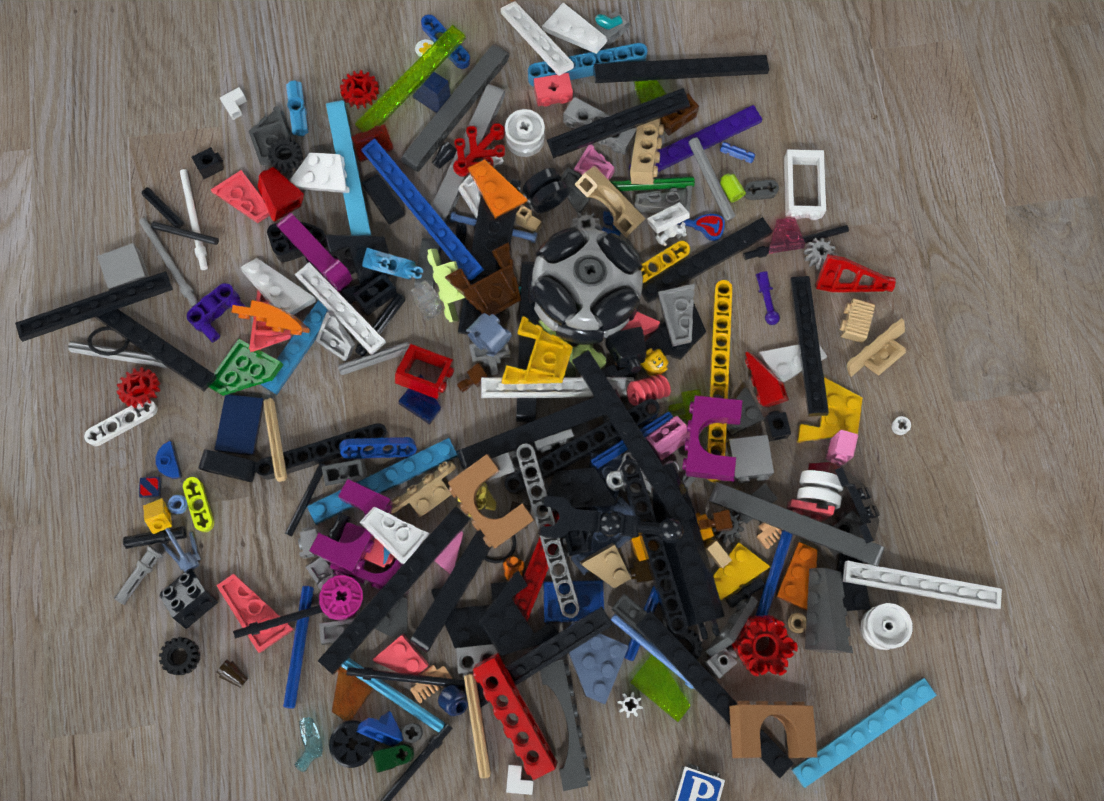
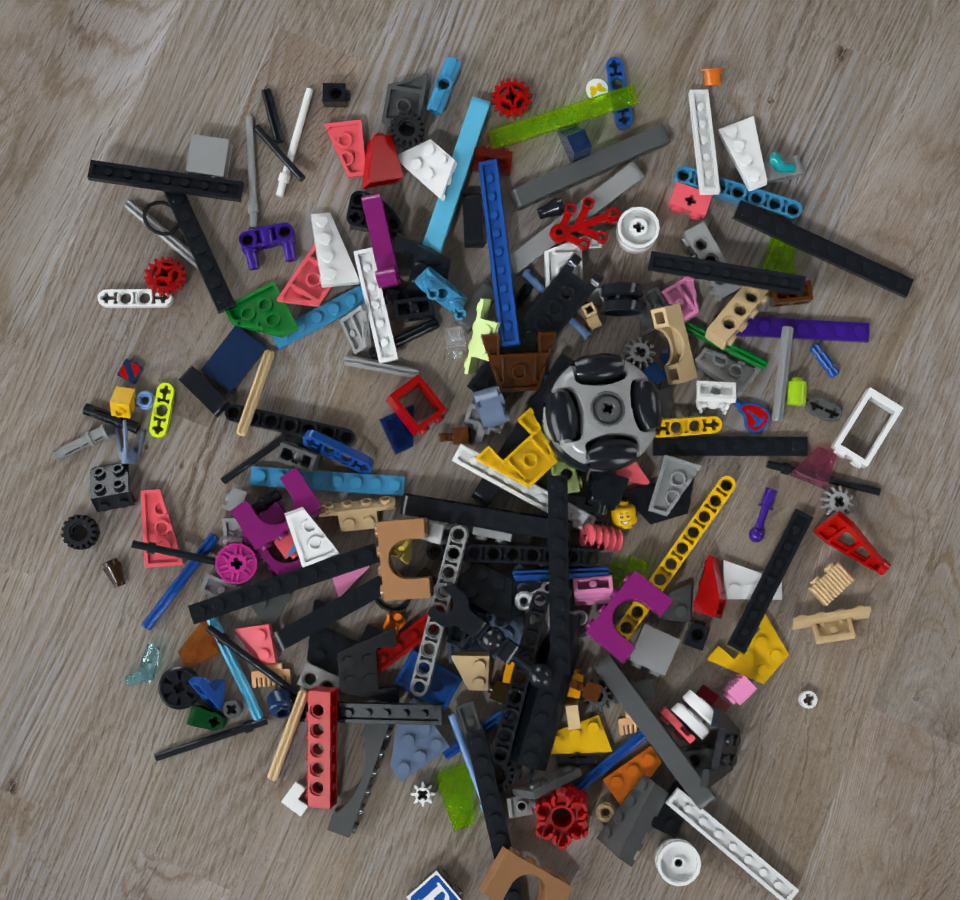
camera: 40 degrees right, 10 degrees up
(167, 462) = (156, 356): blue plate -> none
(232, 101) = (388, 44): white piece -> none
(273, 316) = (314, 282): orange slope -> none
(495, 189) = (574, 275): orange wing -> none

